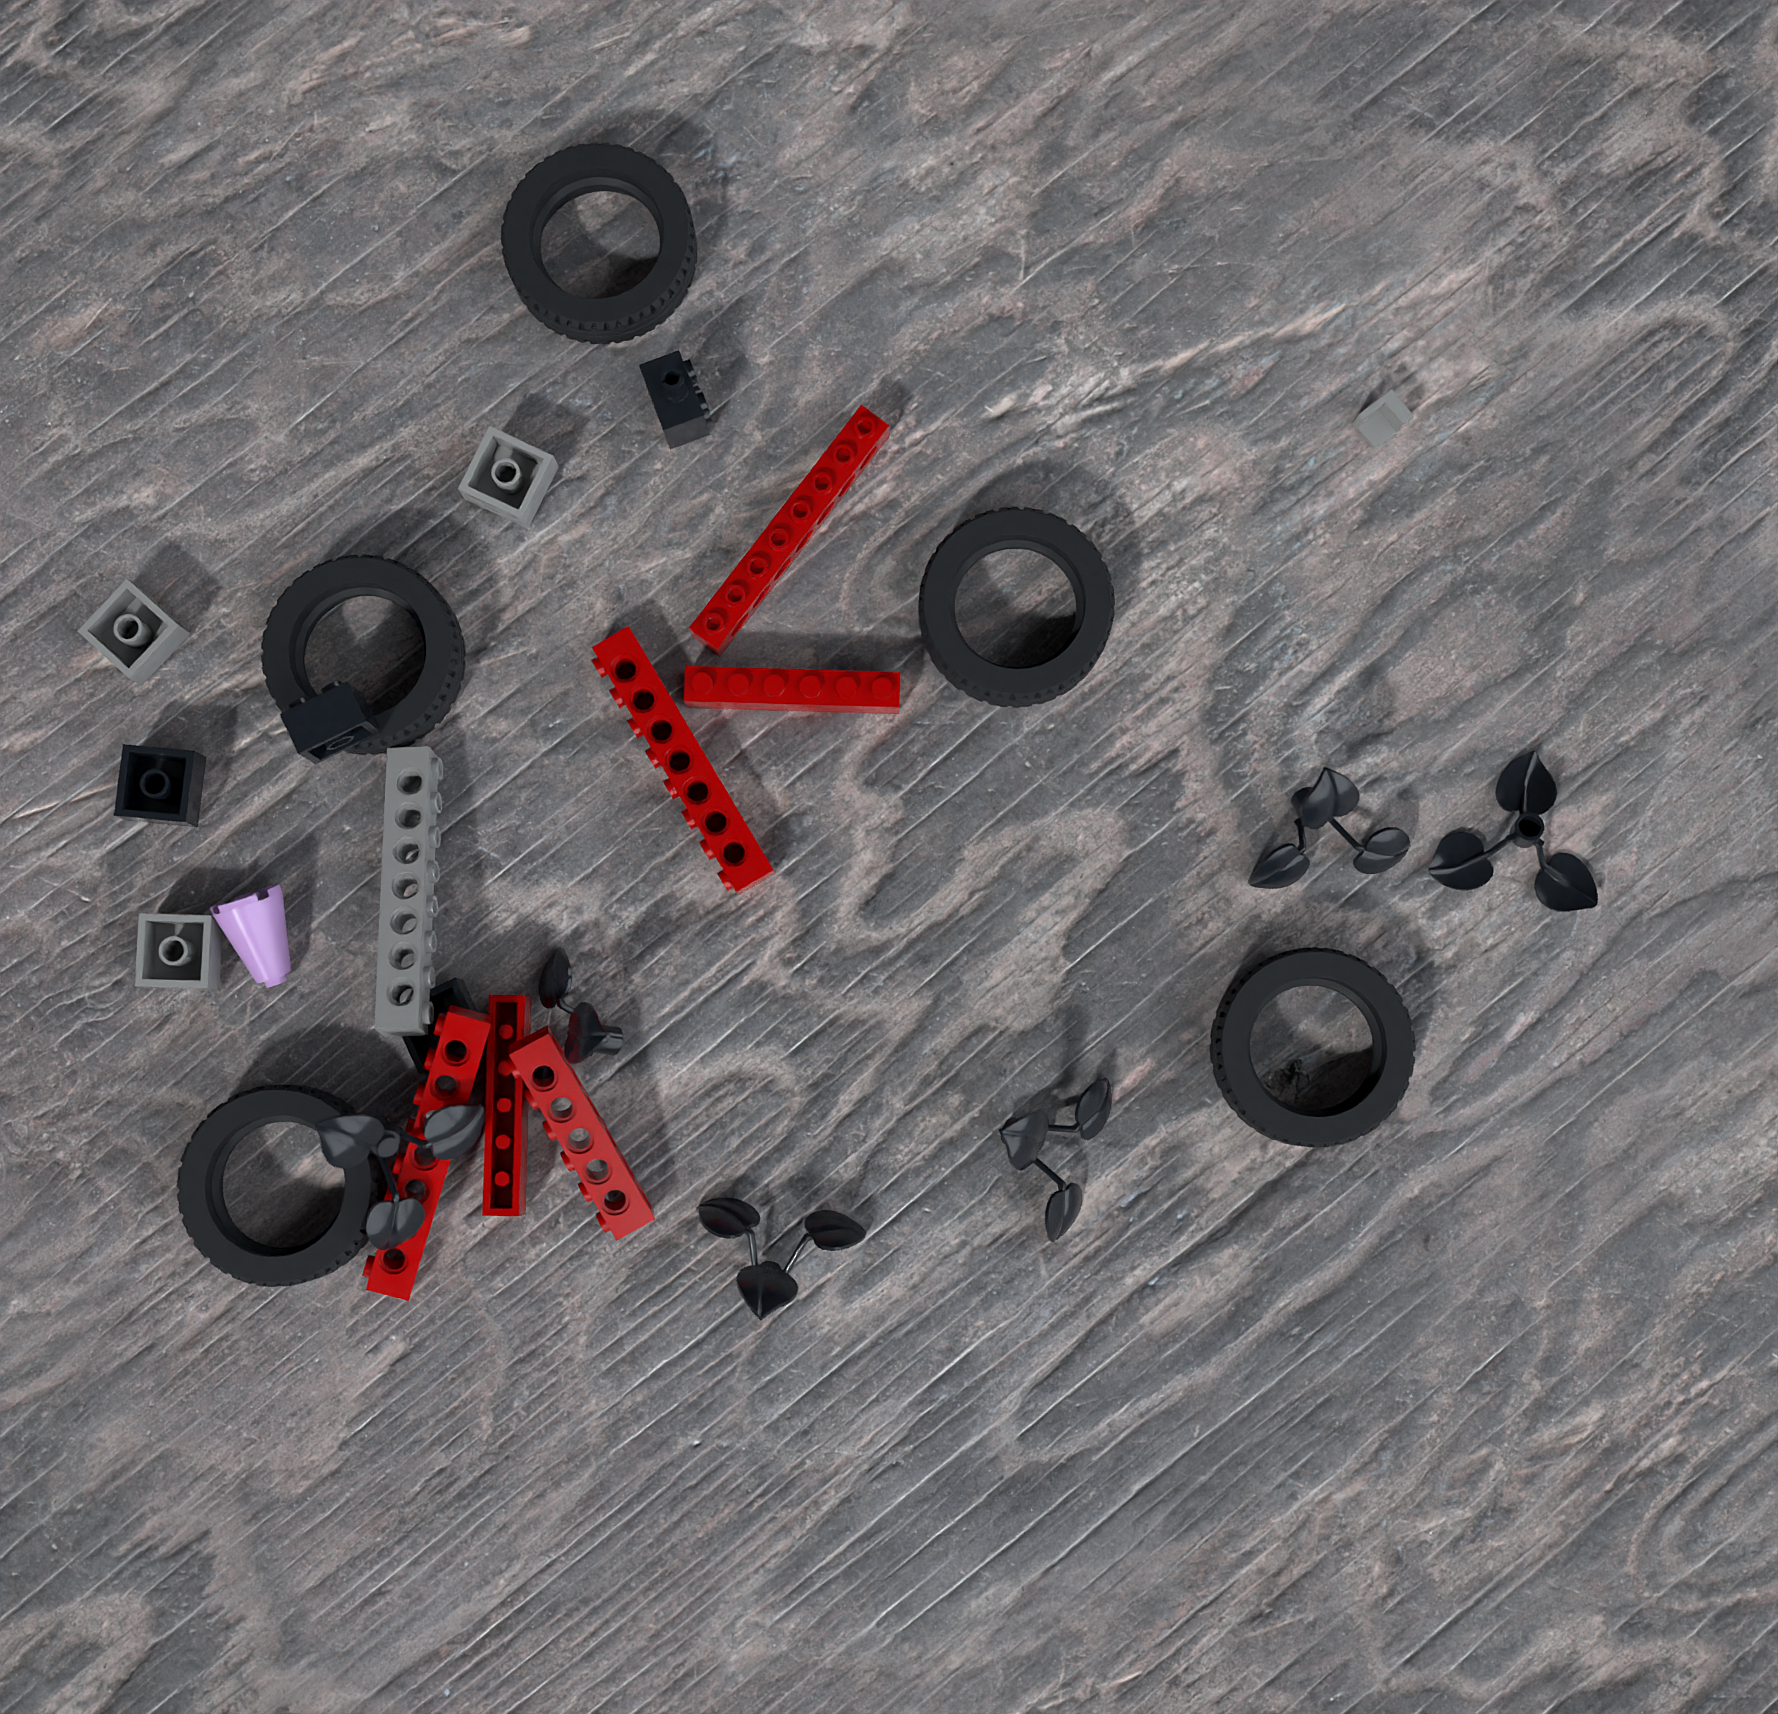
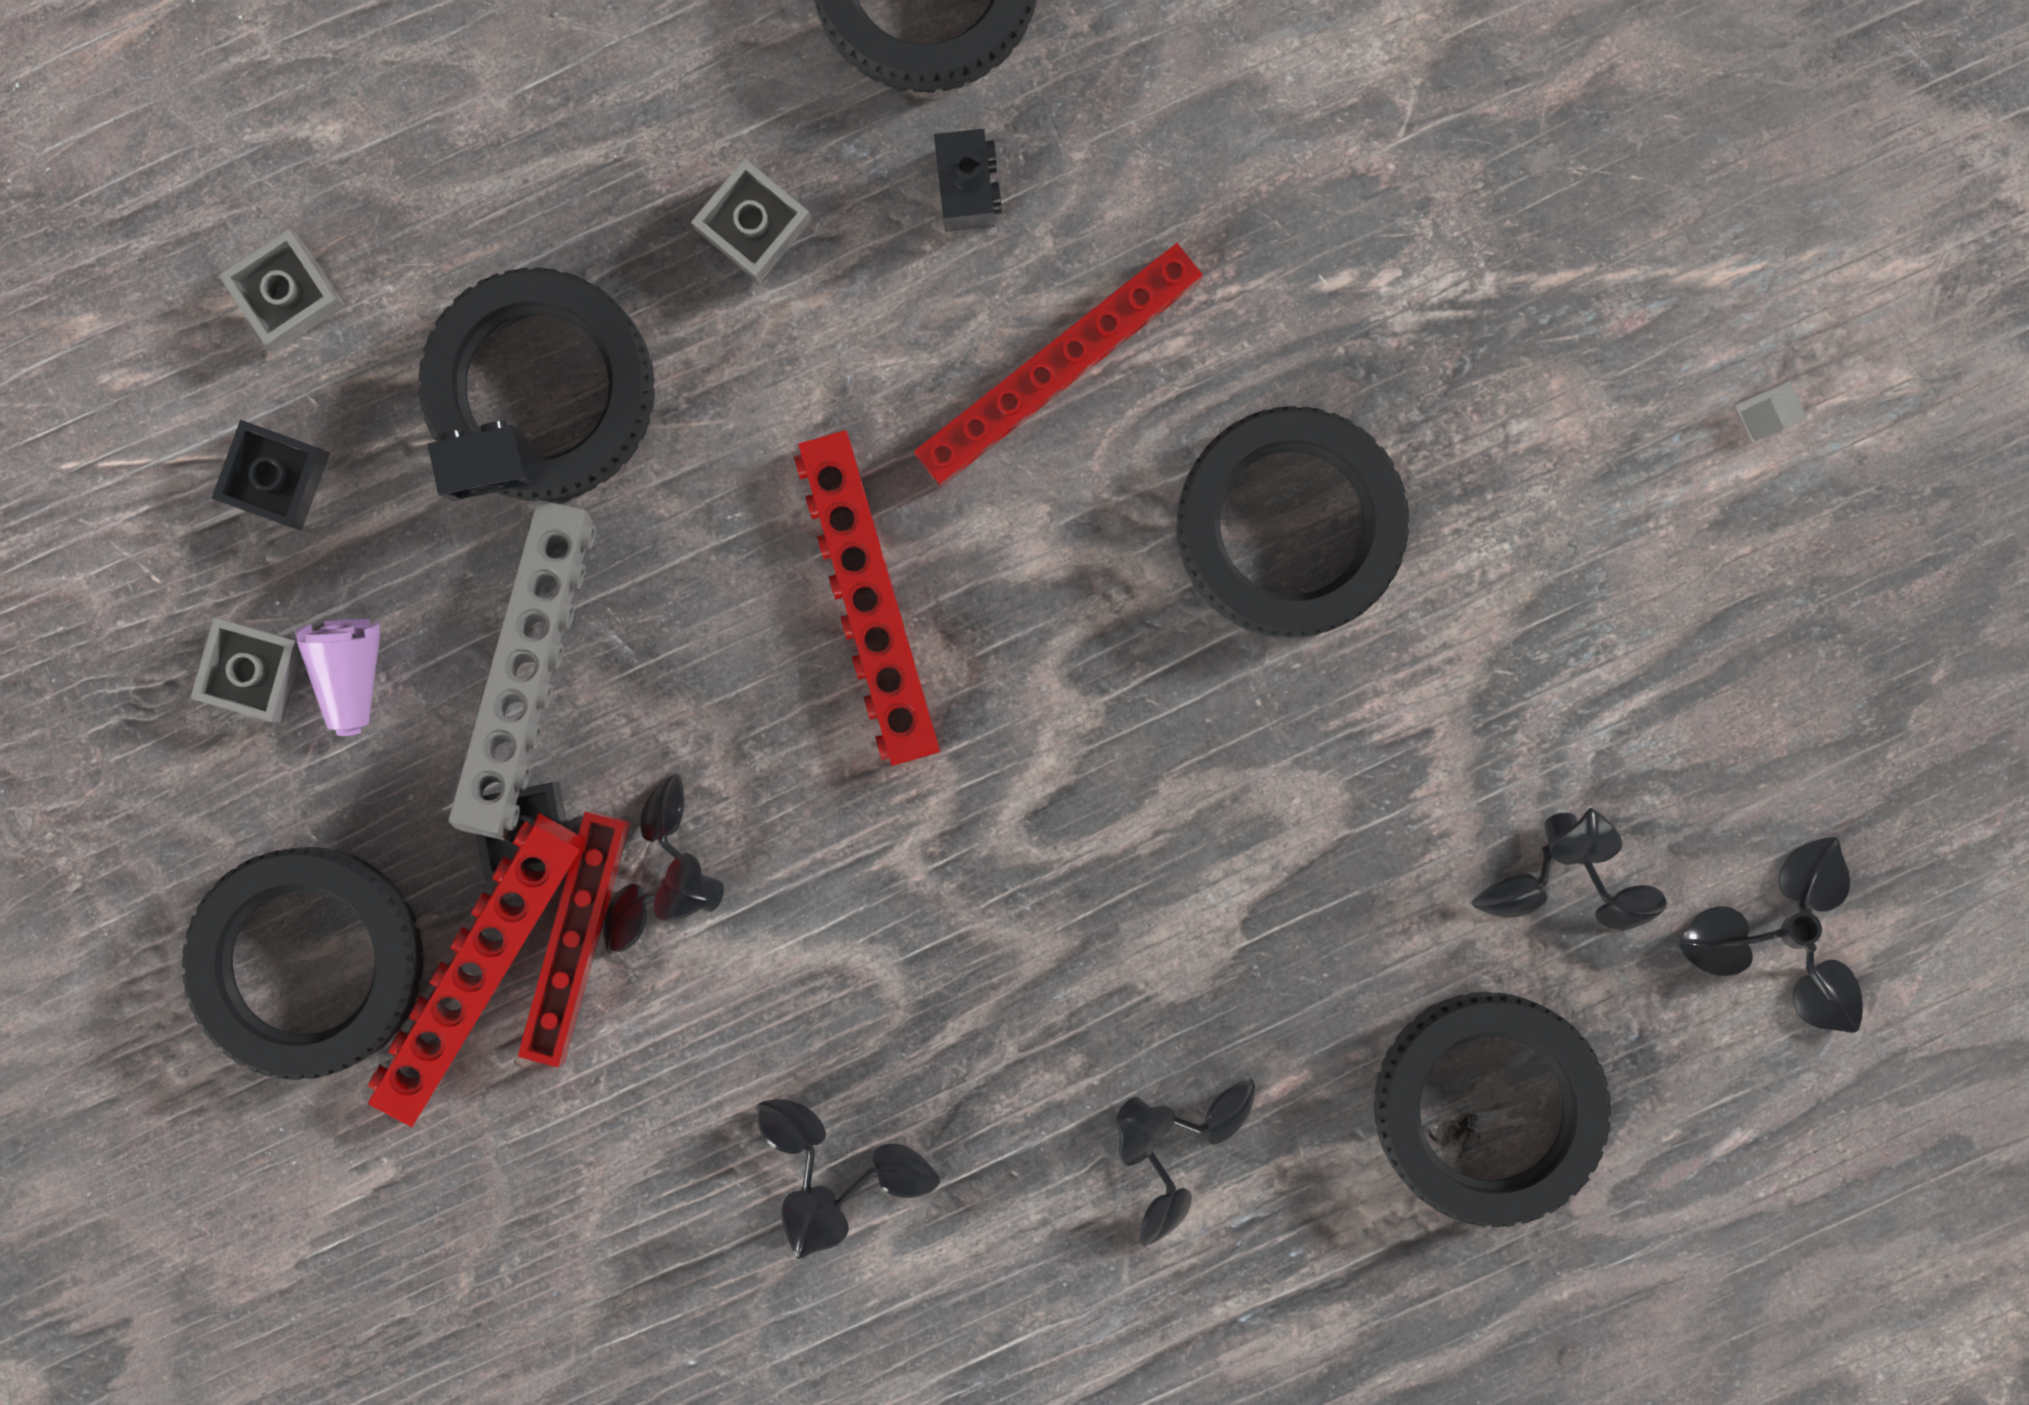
camera: 10 degrees right, 5 degrees up
(350, 1137) = (392, 942): black plant -> none
(544, 1050) = (630, 892): red brick -> none
(792, 690) = (1014, 550): red brick -> none

